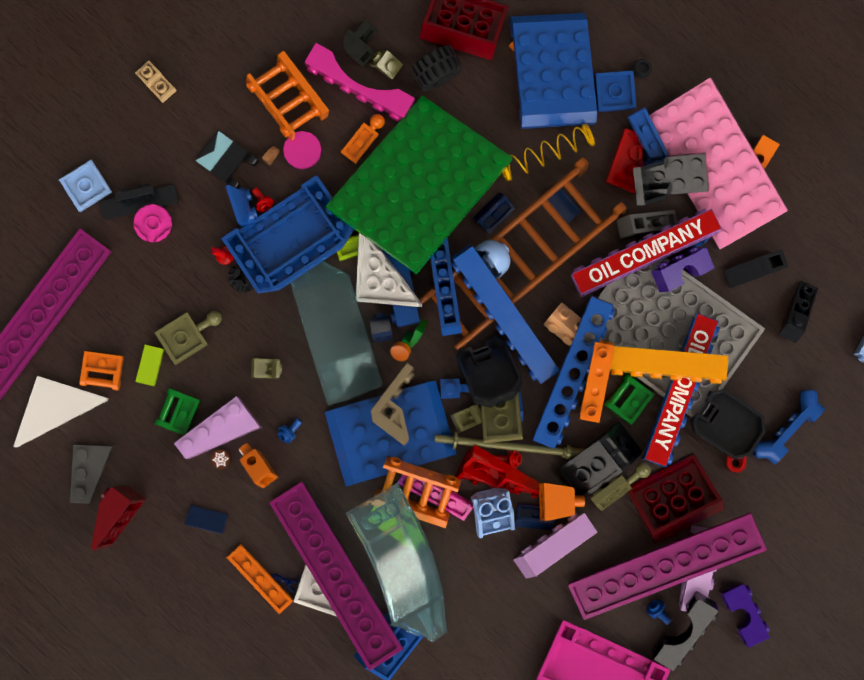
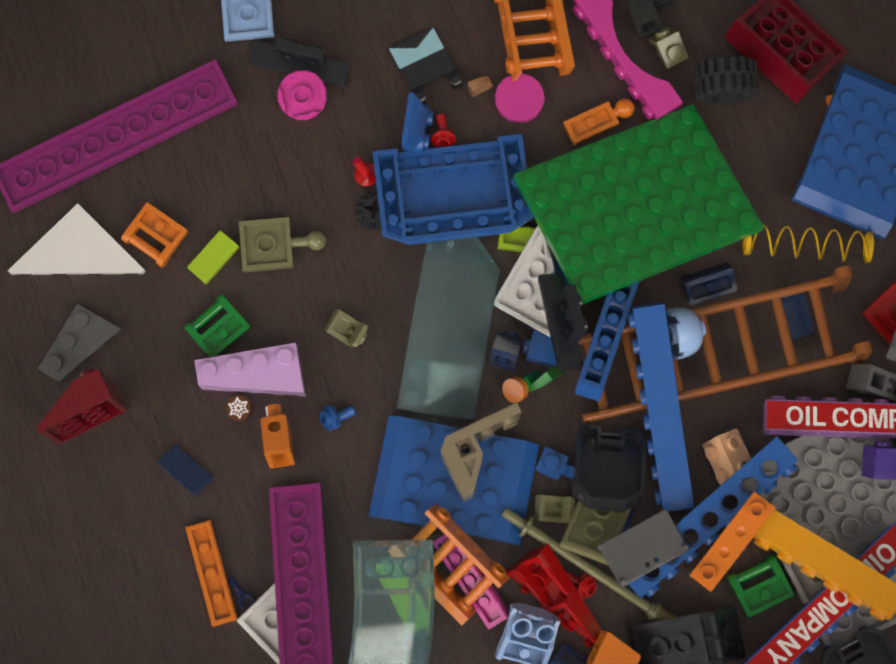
camera: 30 degrees right, 5 degrees down
(410, 290) = (564, 319): none -> black bracket
(536, 418) = (636, 549): none -> dark grey door

